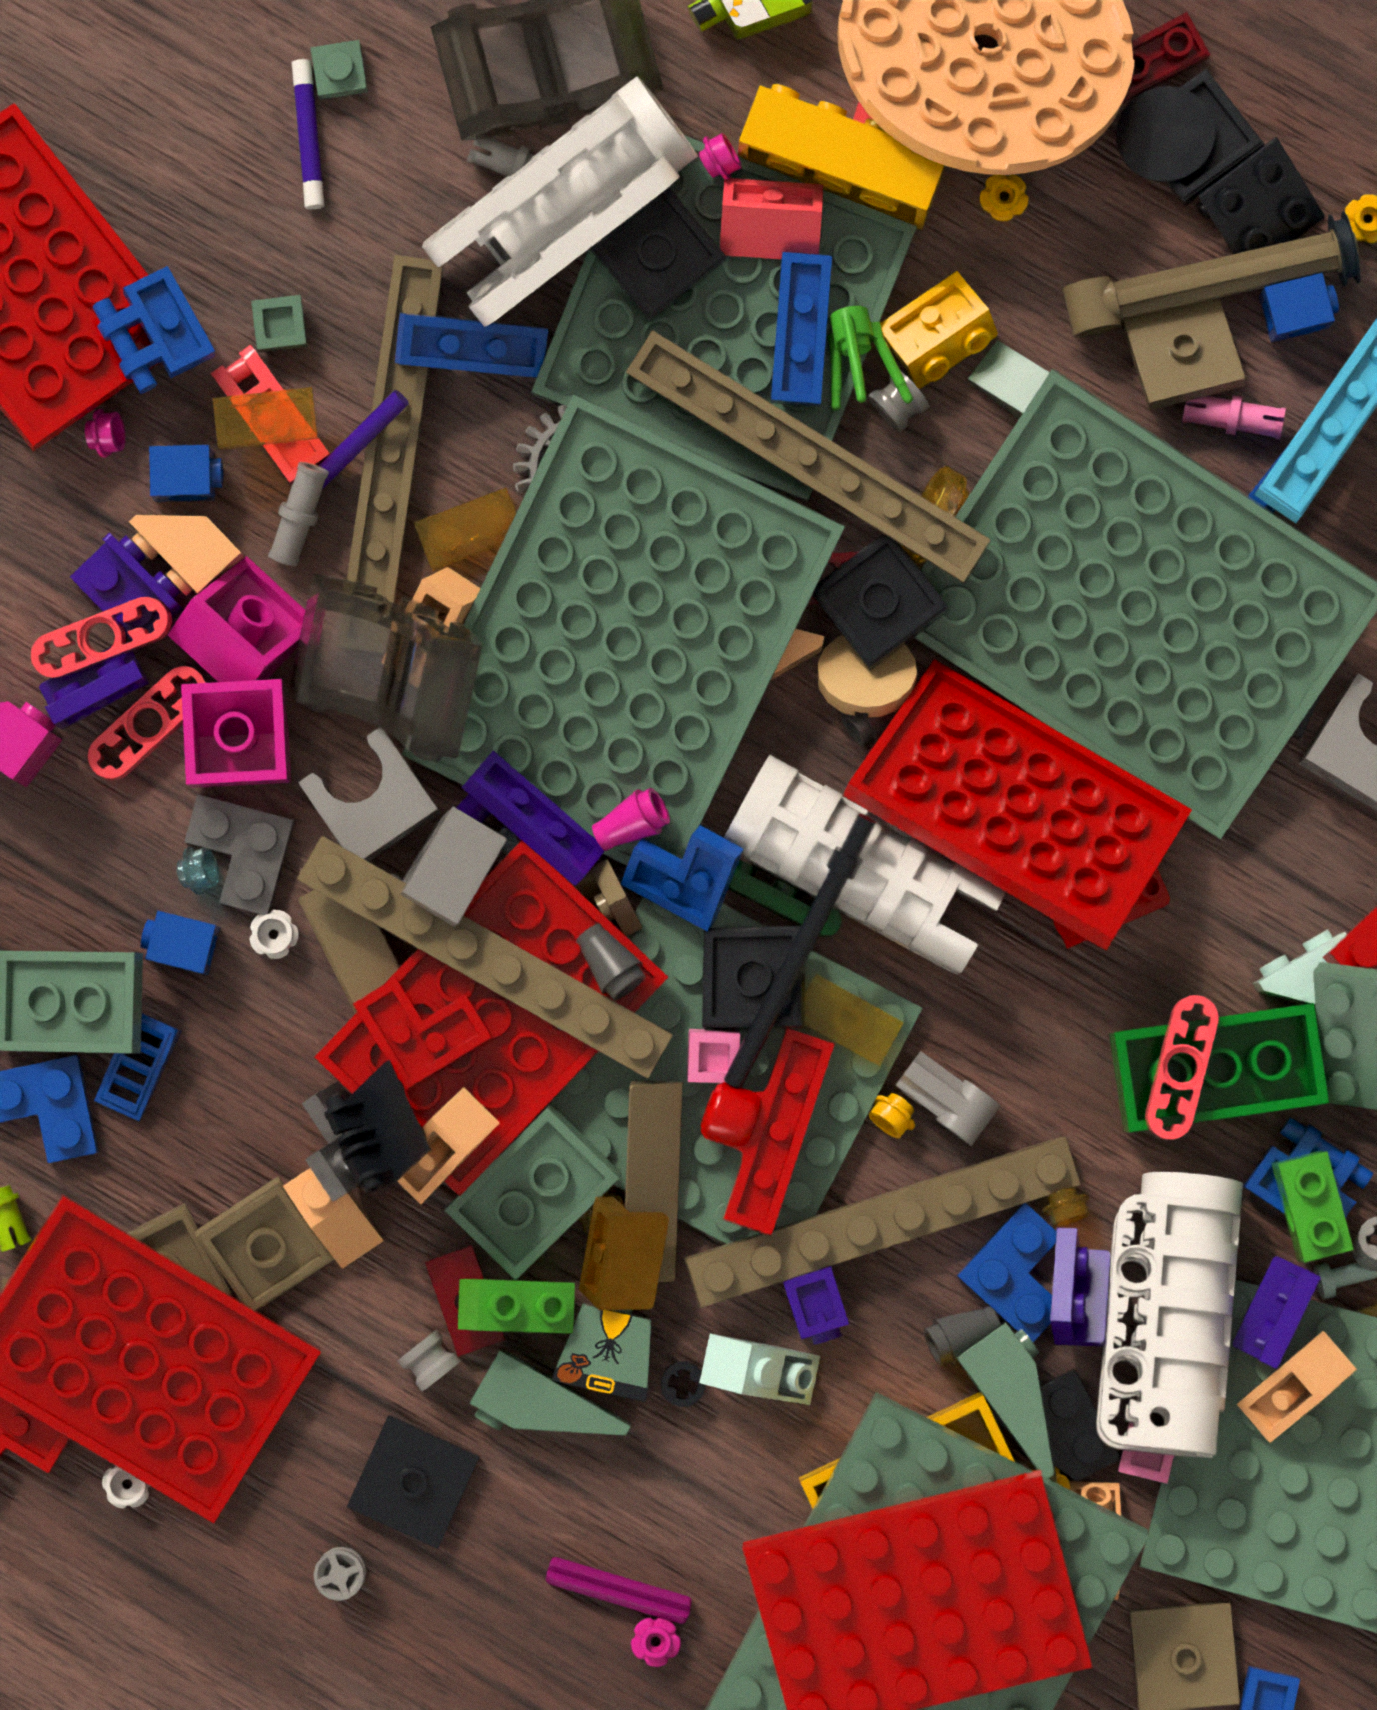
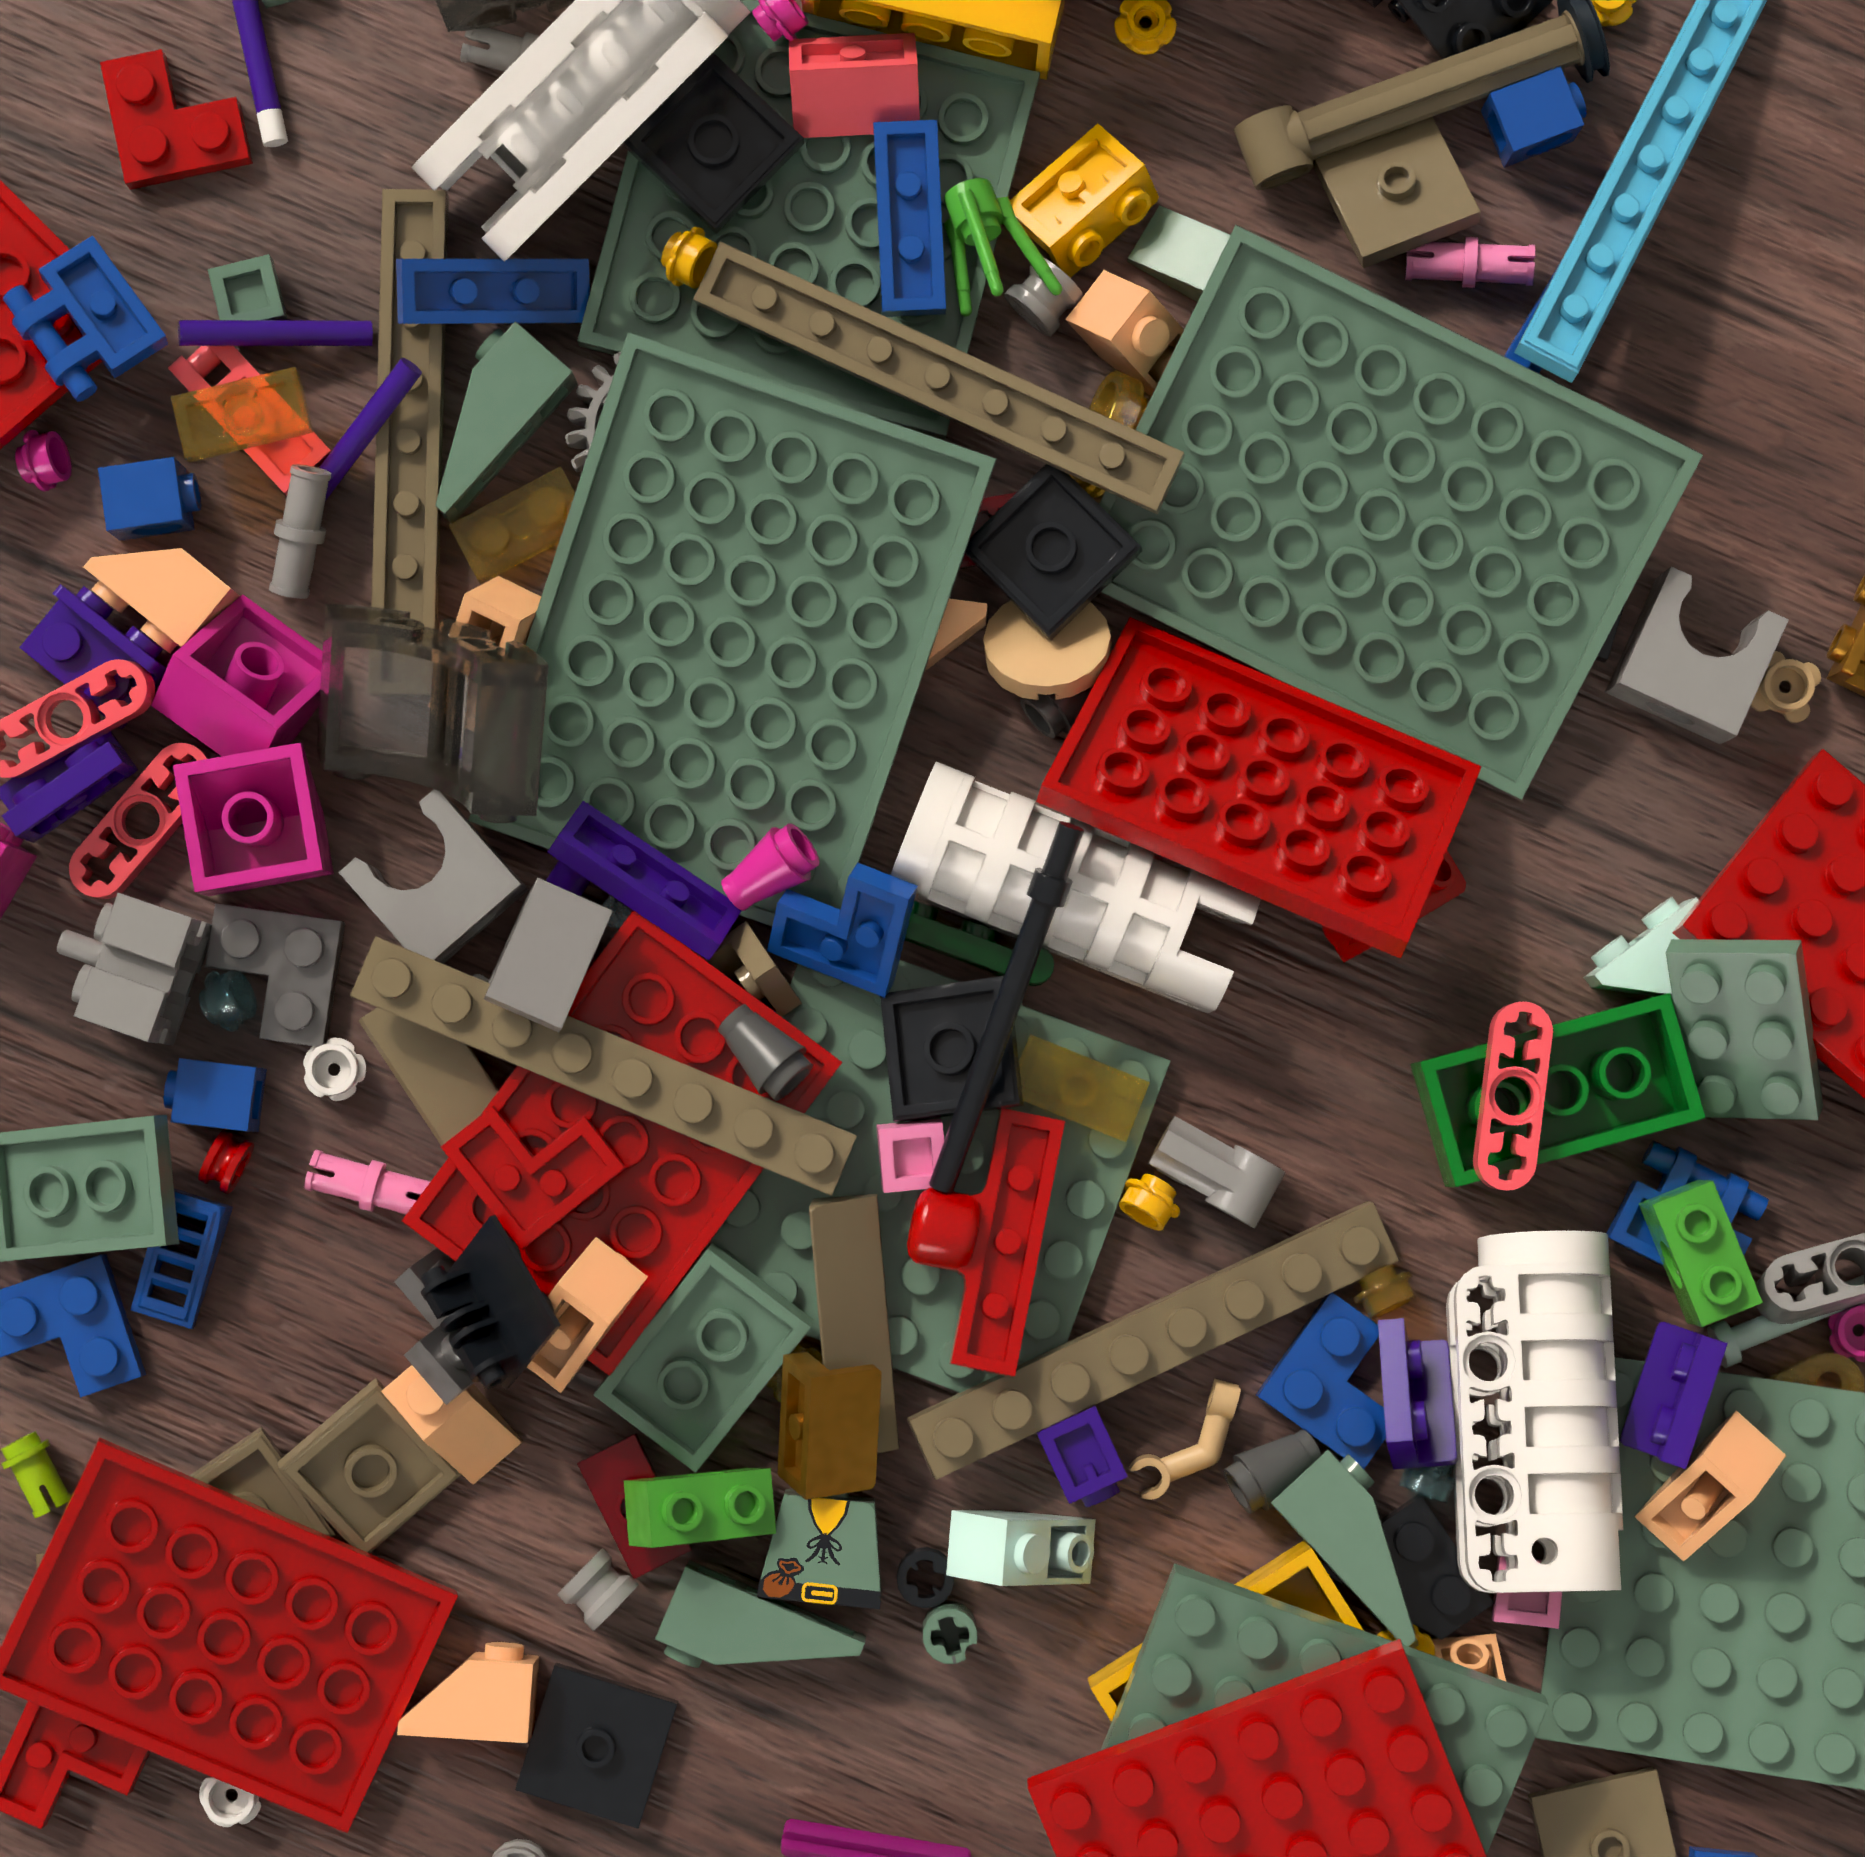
camera: 10 degrees left, 0 degrees up
(134, 836) = (141, 968): none -> light grey brick
(182, 995) = (226, 1161): none -> red bush
(223, 192) = (167, 142): none -> red plate
(287, 1025) = (364, 1183): none -> bright pink pin
(297, 357) = (274, 333): none -> dark purple bar
(330, 1433) = (481, 1699): none -> light nougat slope
(469, 433) = (504, 405): none -> sand green slope
(626, 338) = (688, 257): none -> yellow plate
(695, 1427) = (949, 1631): none -> sand green piece
(914, 1312) = (1208, 1451): none -> tan arm
(959, 435) = (1127, 328): none -> light nougat slope
(1082, 1358) = (1429, 1482): none -> clear light blue plate

